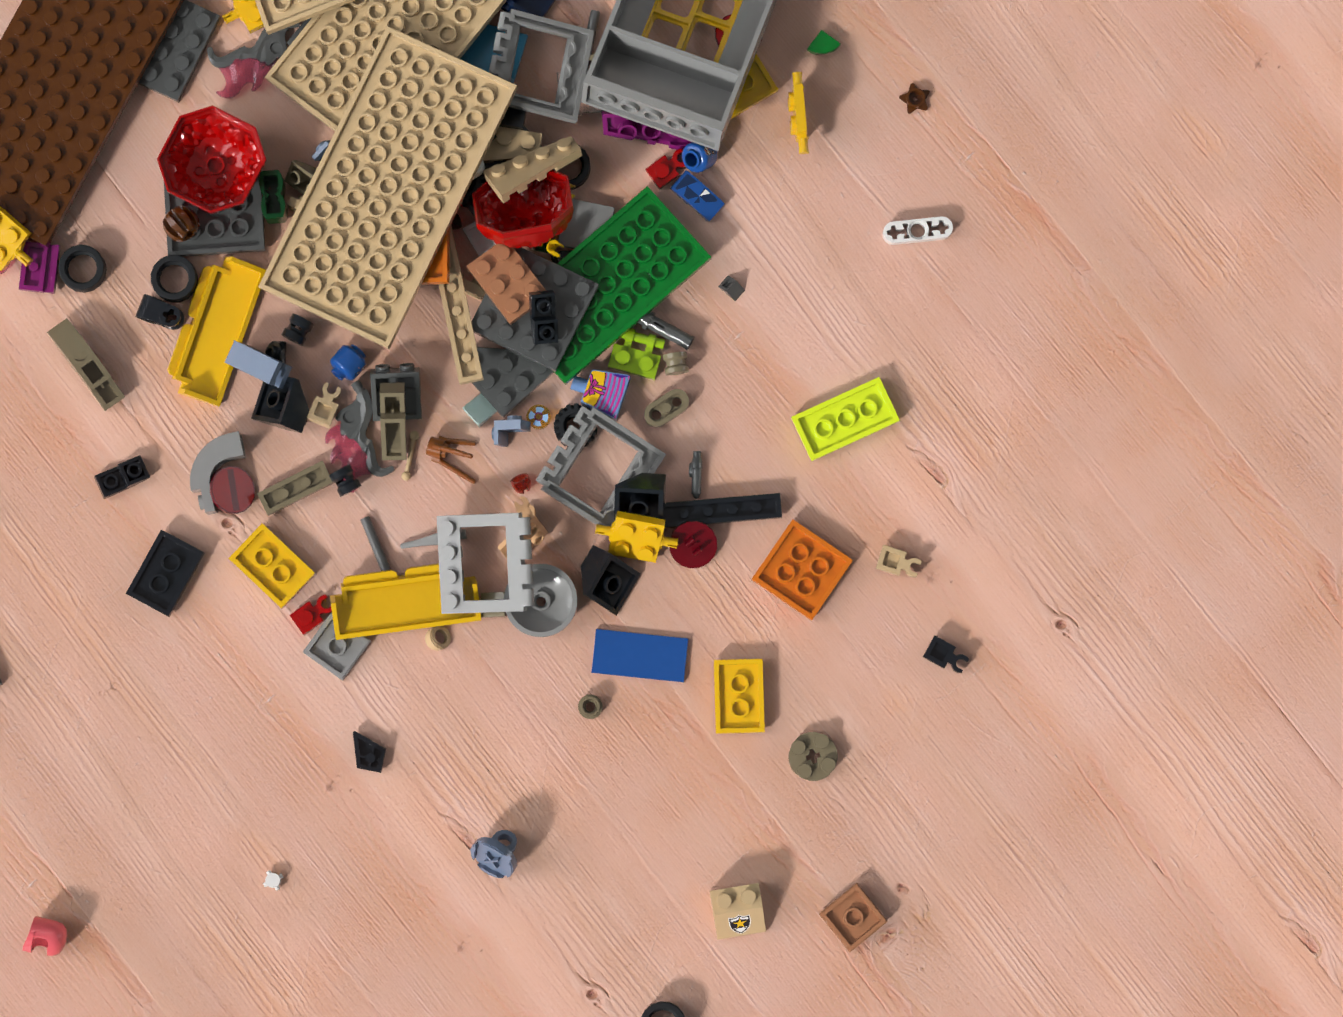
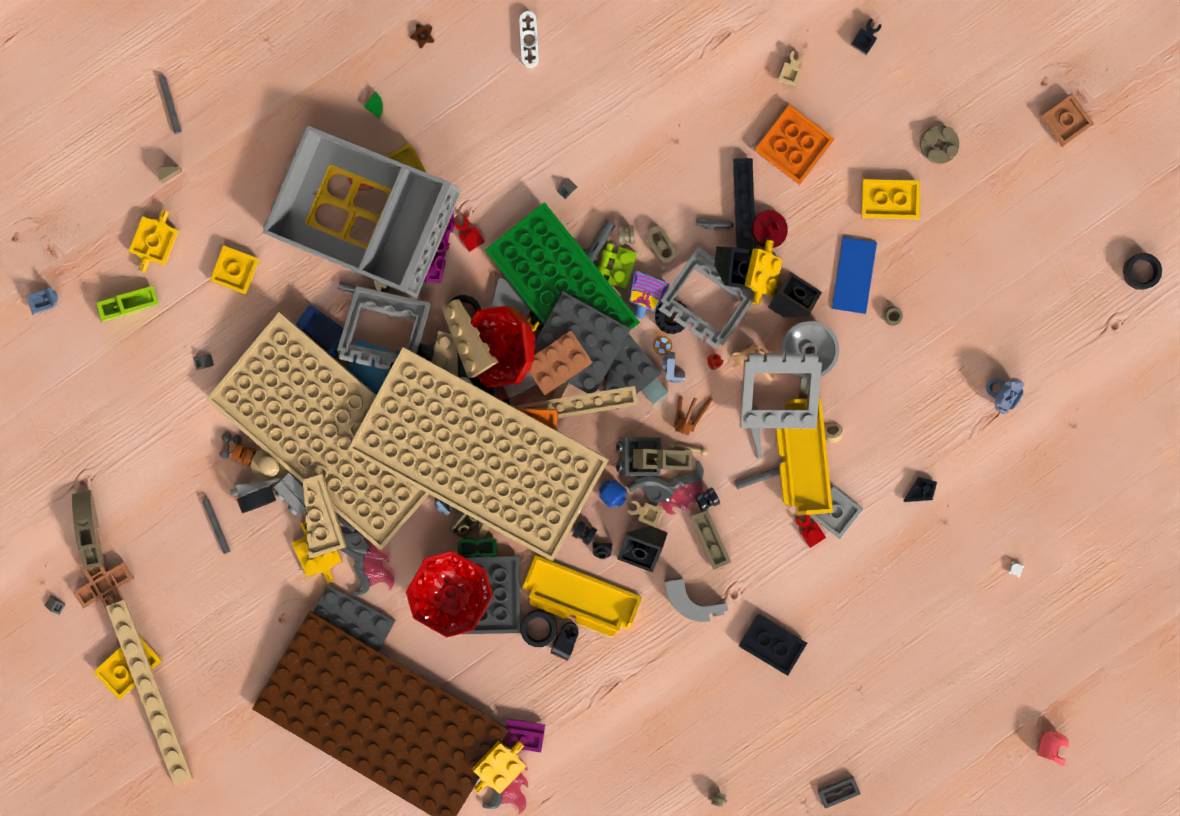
camera: 85 degrees left, 5 degrees up
(82, 250) = (523, 715): black tyre -> none
(86, 364) = (604, 701): dark tan slope -> none
(122, 477) = (694, 675): black slope -> none
(181, 223) = (496, 621): reddish brown piece -> none
(232, 490) = (710, 588): red piece -> none
(258, 364) = (612, 564): piece -> none
(272, 566) = (771, 560): yellow plate -> none
(542, 317) = (589, 335): black slope -> none
(697, 195) = (492, 211): slope -> none
(698, 157) = (464, 209): blue head -> none
(737, 911) = (1056, 209): tan slope -> none
(798, 121) = (438, 126): yellow plate -> none
(845, 419) = (676, 104): neon yellow plate -> none

